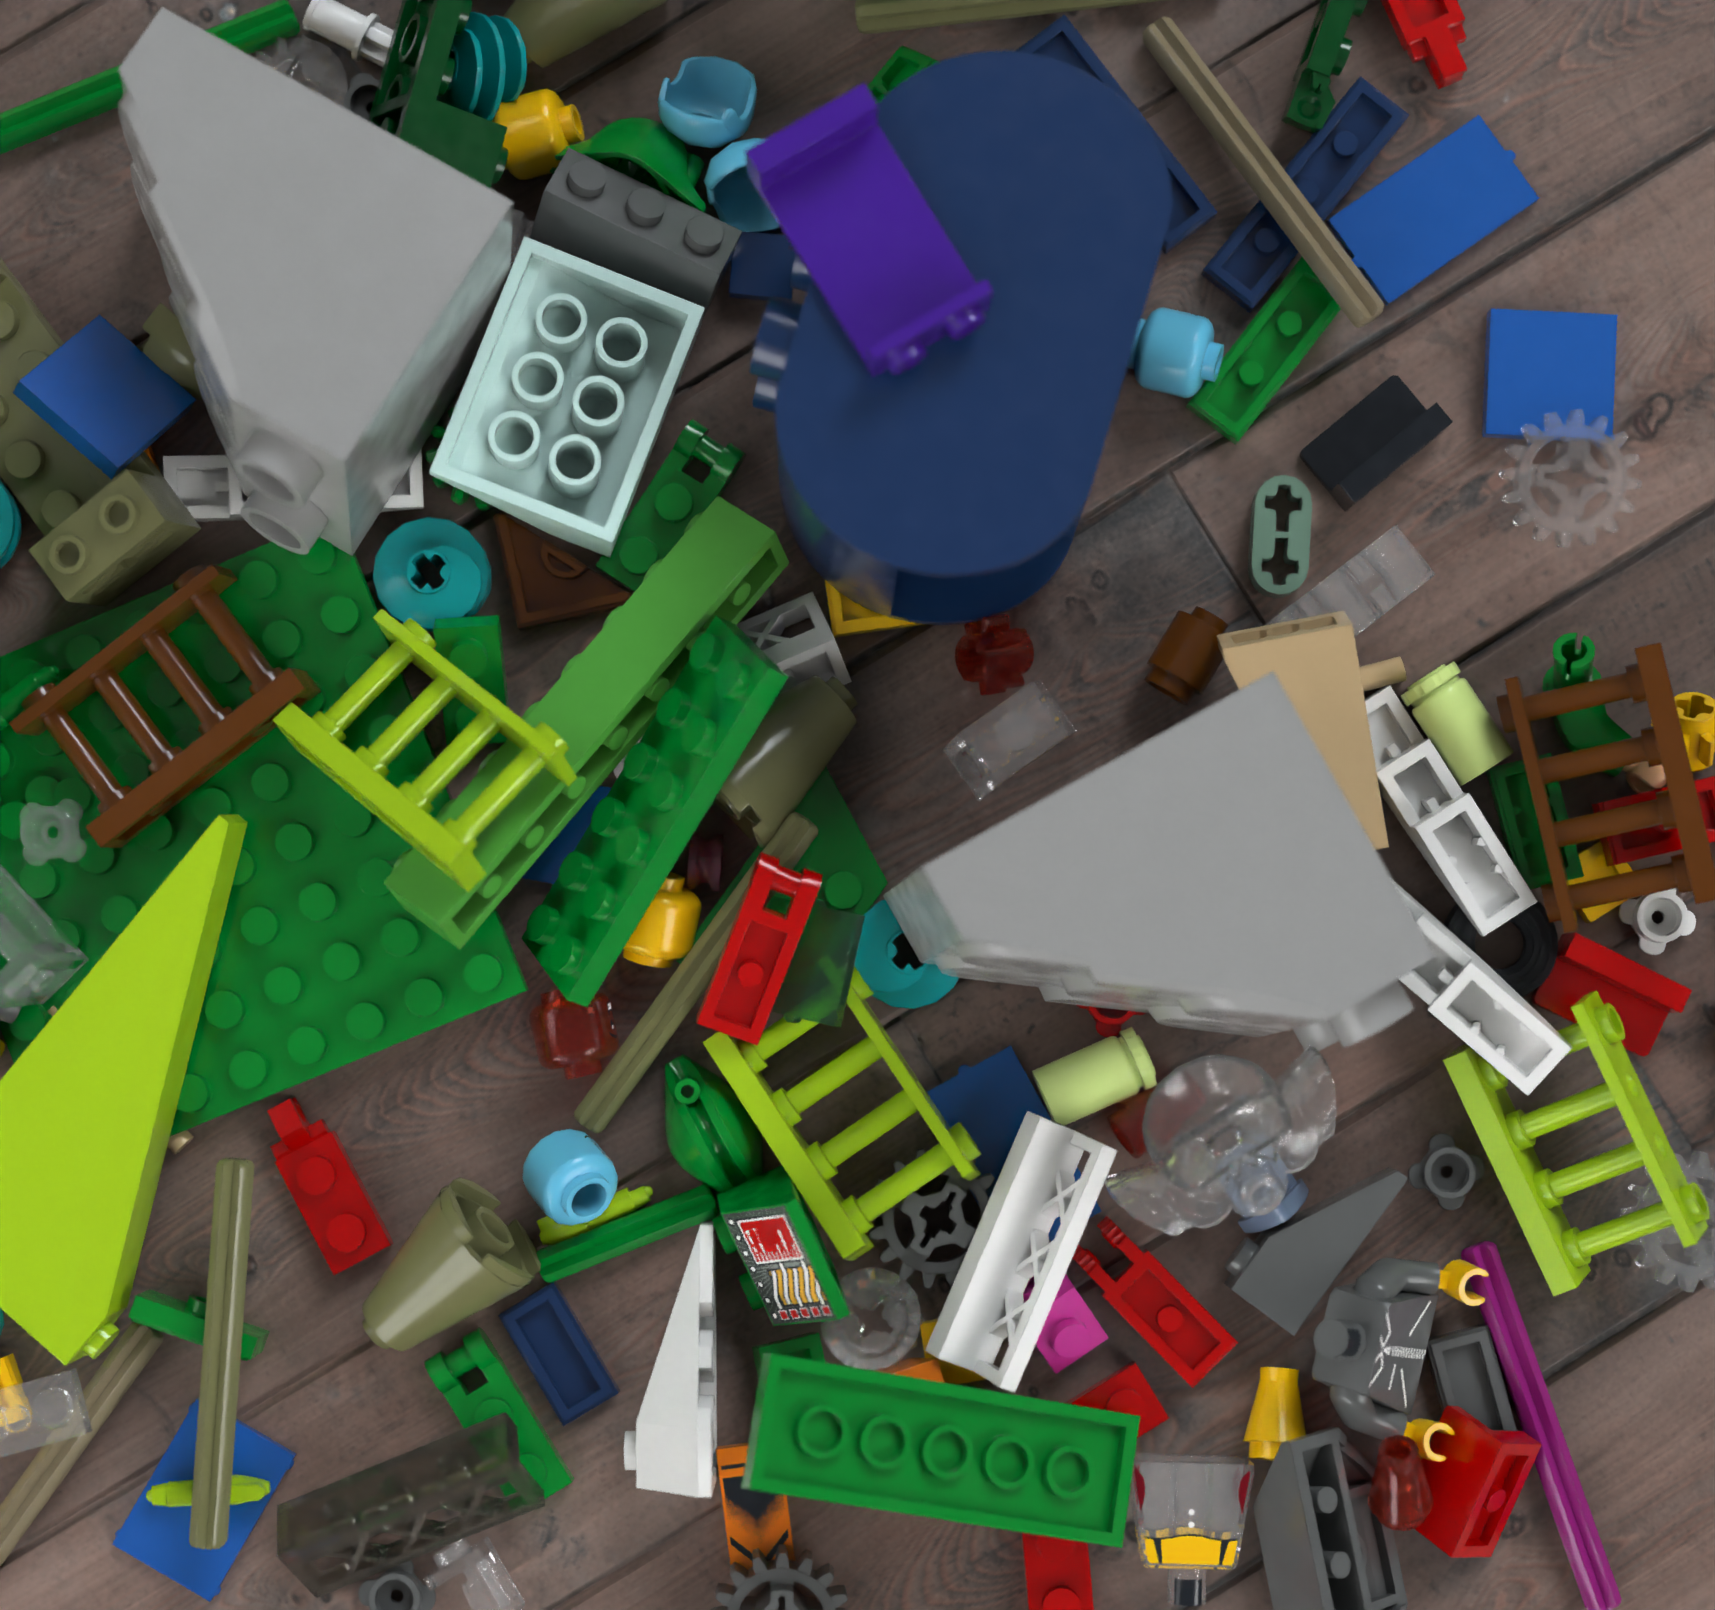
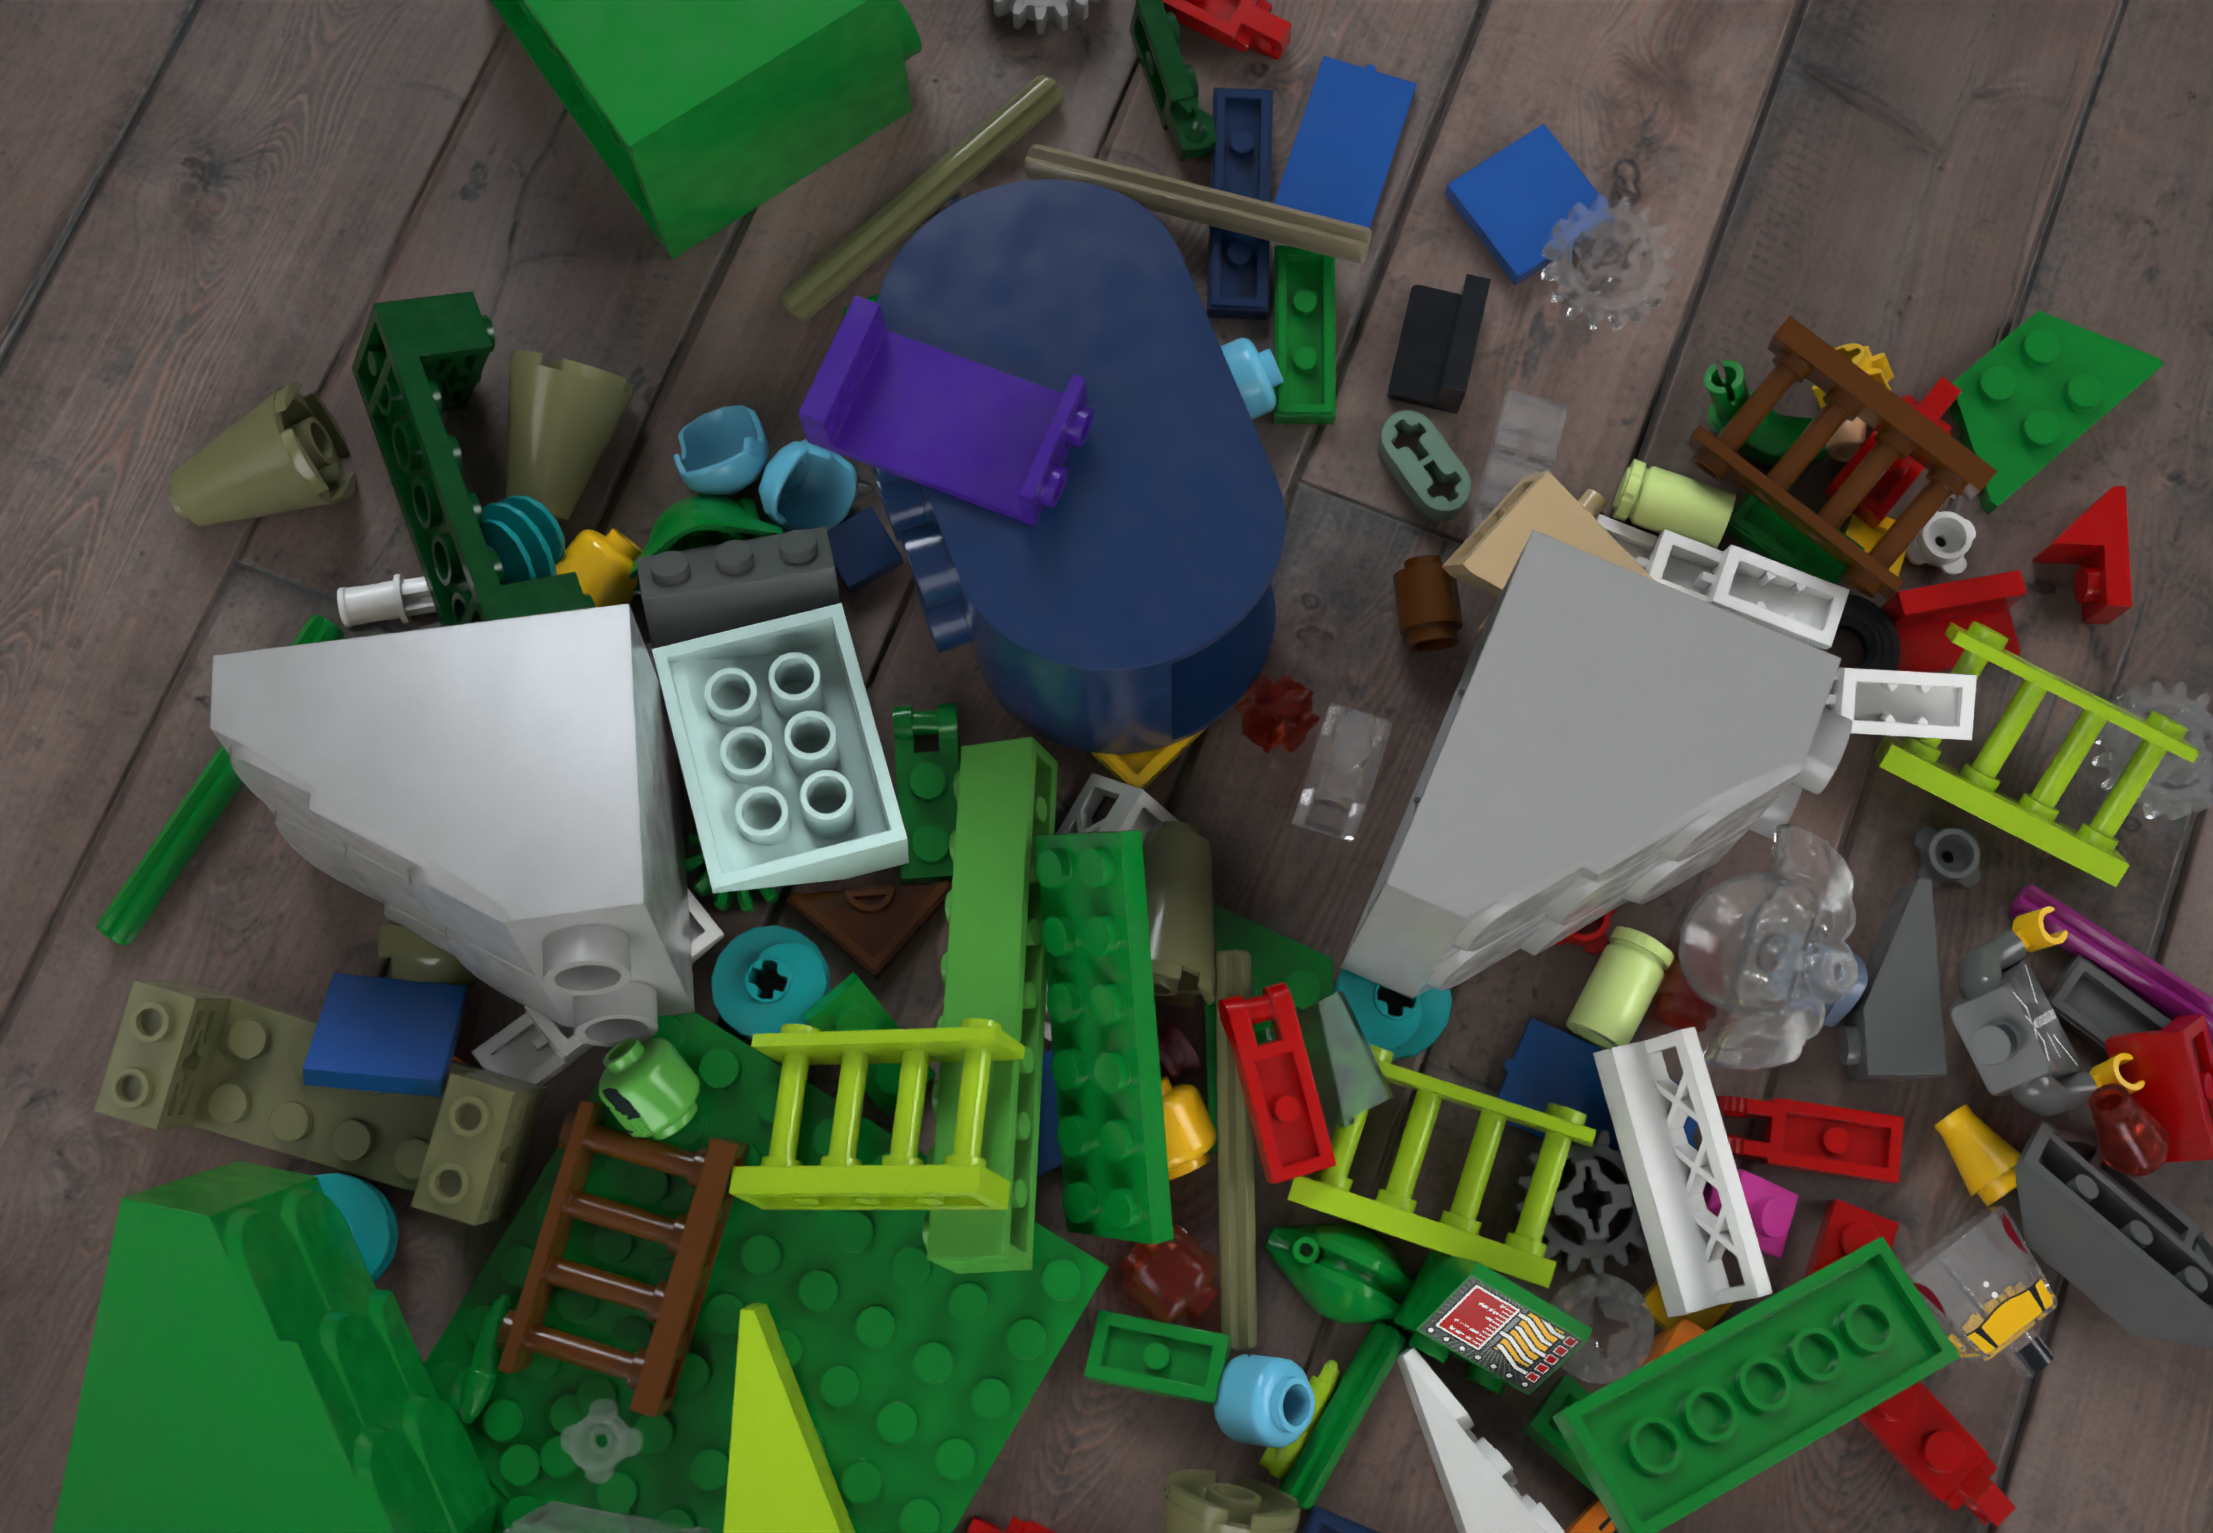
camera: 40 degrees left, 10 degrees down
(271, 592) = (648, 1087): none -> bright green head
(515, 1085) = (1157, 1358): none -> green plate

